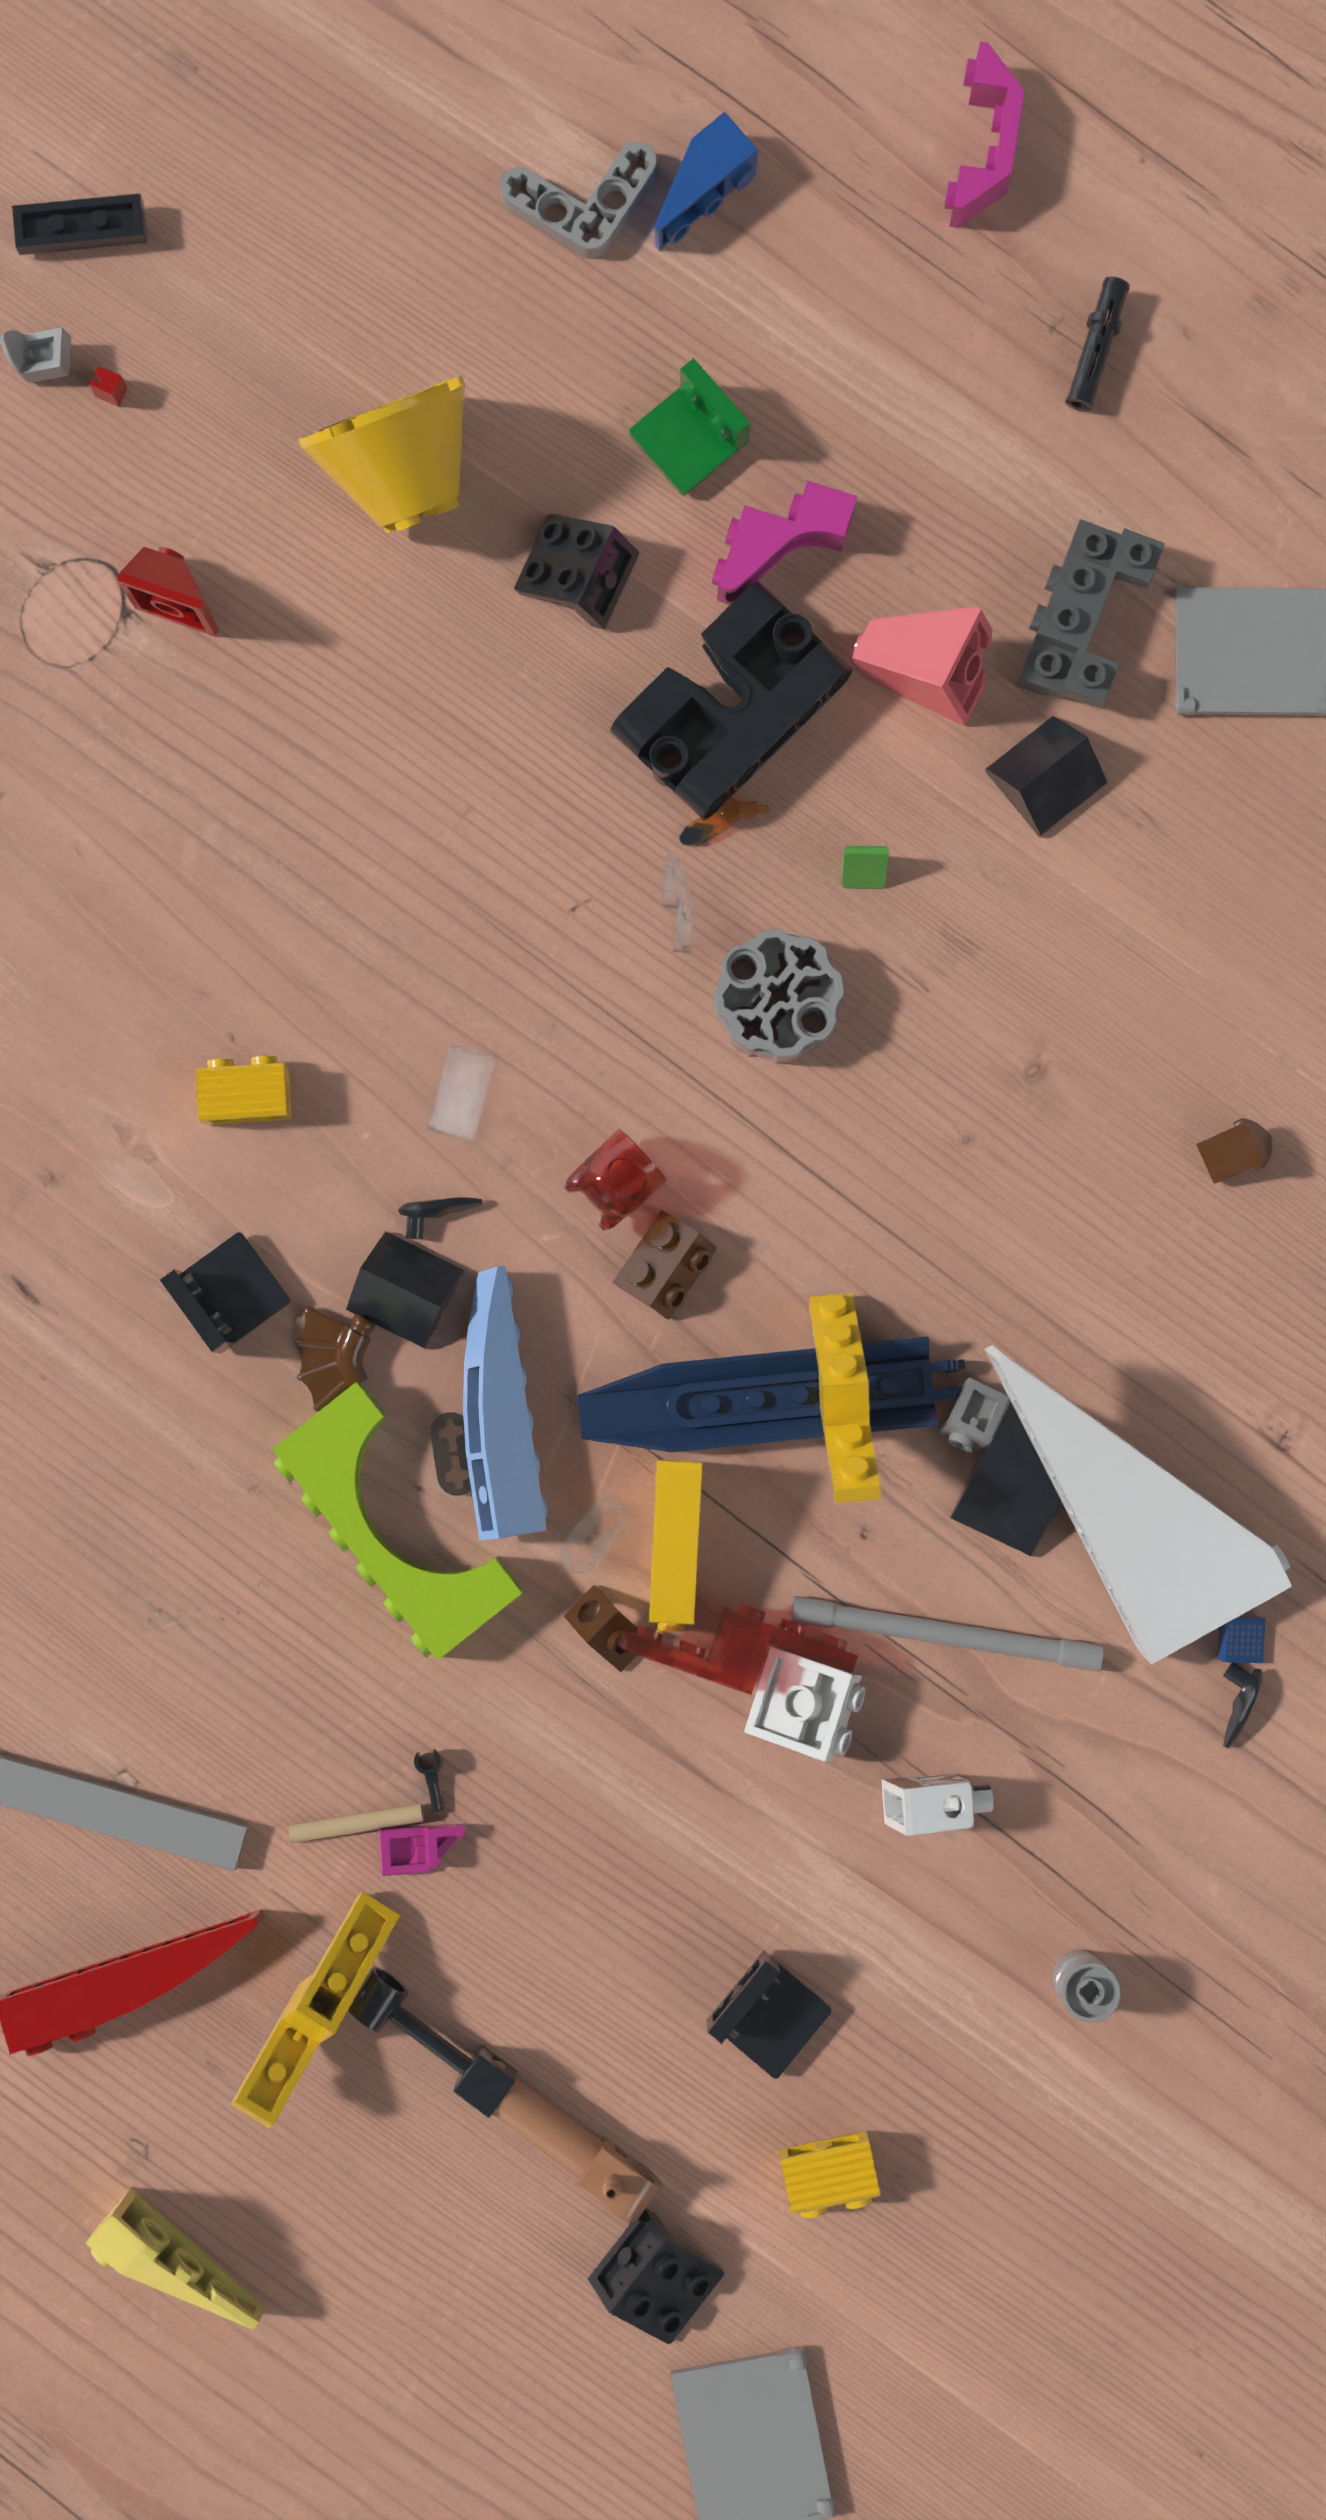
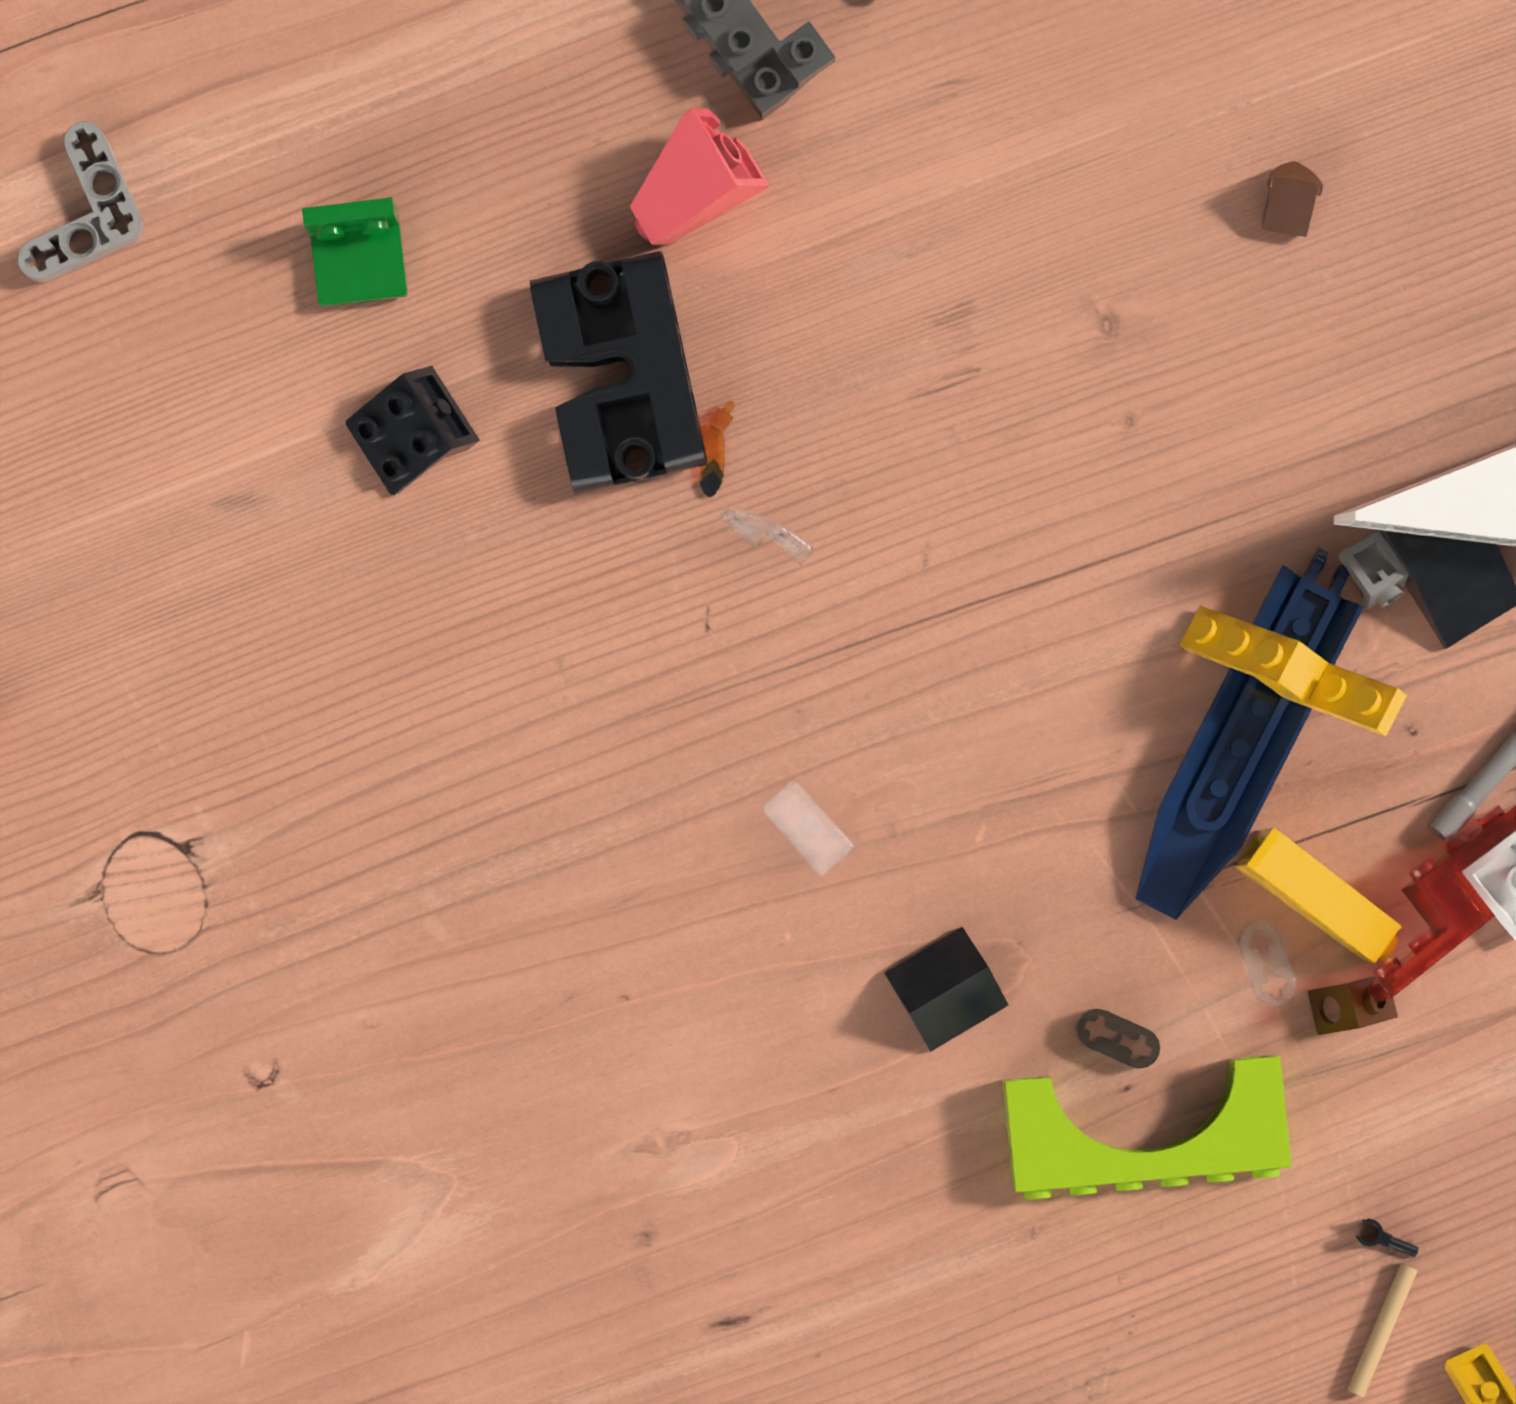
camera: 55 degrees left, 0 degrees up
(167, 589) = (195, 795): red slope -> none
(227, 1293) = (851, 1144): black bracket -> none
(243, 1092) = (684, 1017): yellow brick -> none
(331, 1354) = (962, 1089): reddish brown arm -> none
(398, 455) = (212, 517): yellow cone -> none
(415, 1847) = (1435, 1291): dark pink slope -> none
(434, 1208) = (886, 930): black bar -> none
(497, 1417) = (1112, 978): light blue slope -> none
(616, 1179) = (973, 743): clear red piece -> none
(665, 1264) = (1072, 749): reddish brown bracket -> none
(712, 167) = (133, 77): blue slope -> none
(737, 993) = (945, 511): light grey connector -> none
(763, 539) = (493, 253): dark pink arch -> none
(864, 867) = (838, 353): bright green slope -> none
(1048, 774) = (859, 143): black slope -> none

